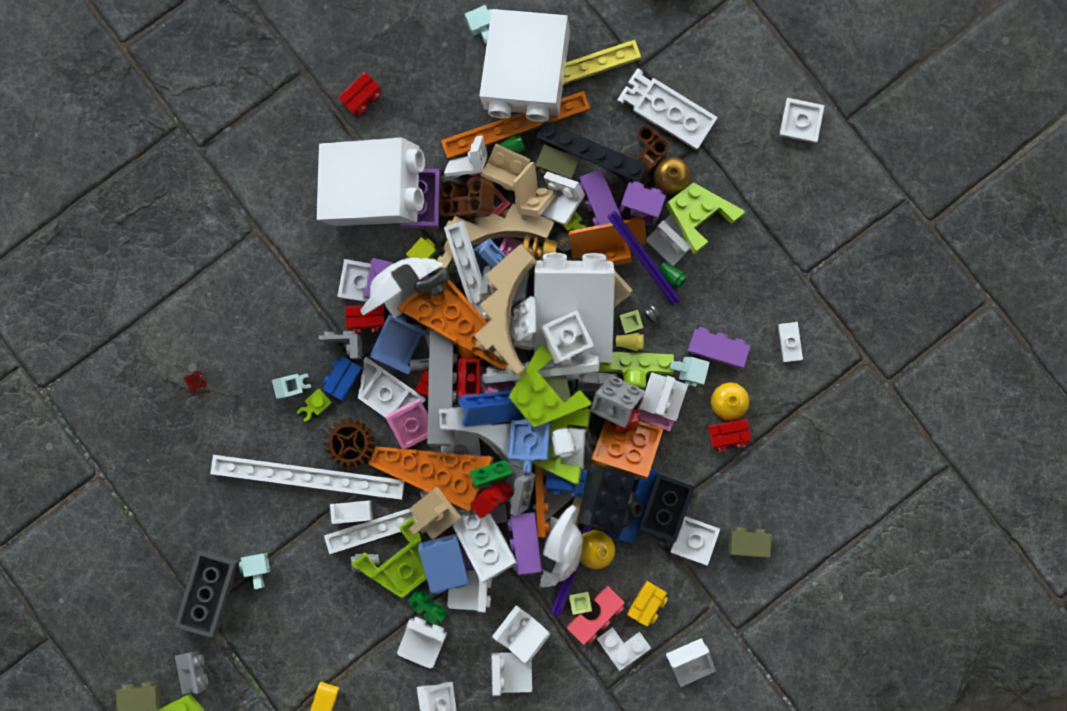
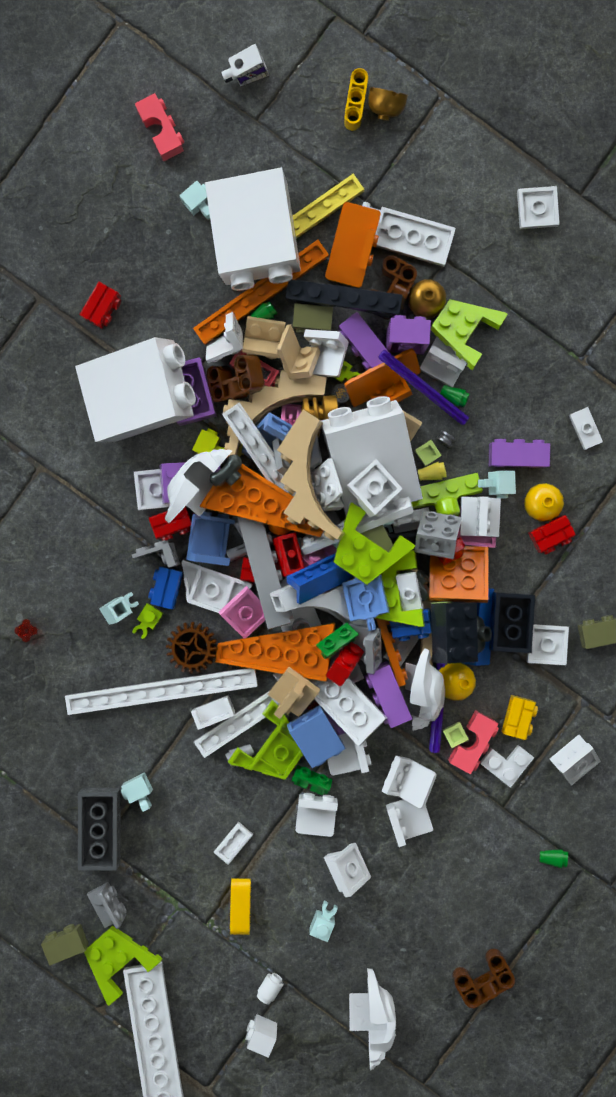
camera: 15 degrees left, 5 degrees up
(332, 647) = (233, 843): none -> white plate
(563, 443) = (399, 591): white brick -> none
(615, 105) = (353, 244): none -> orange bracket

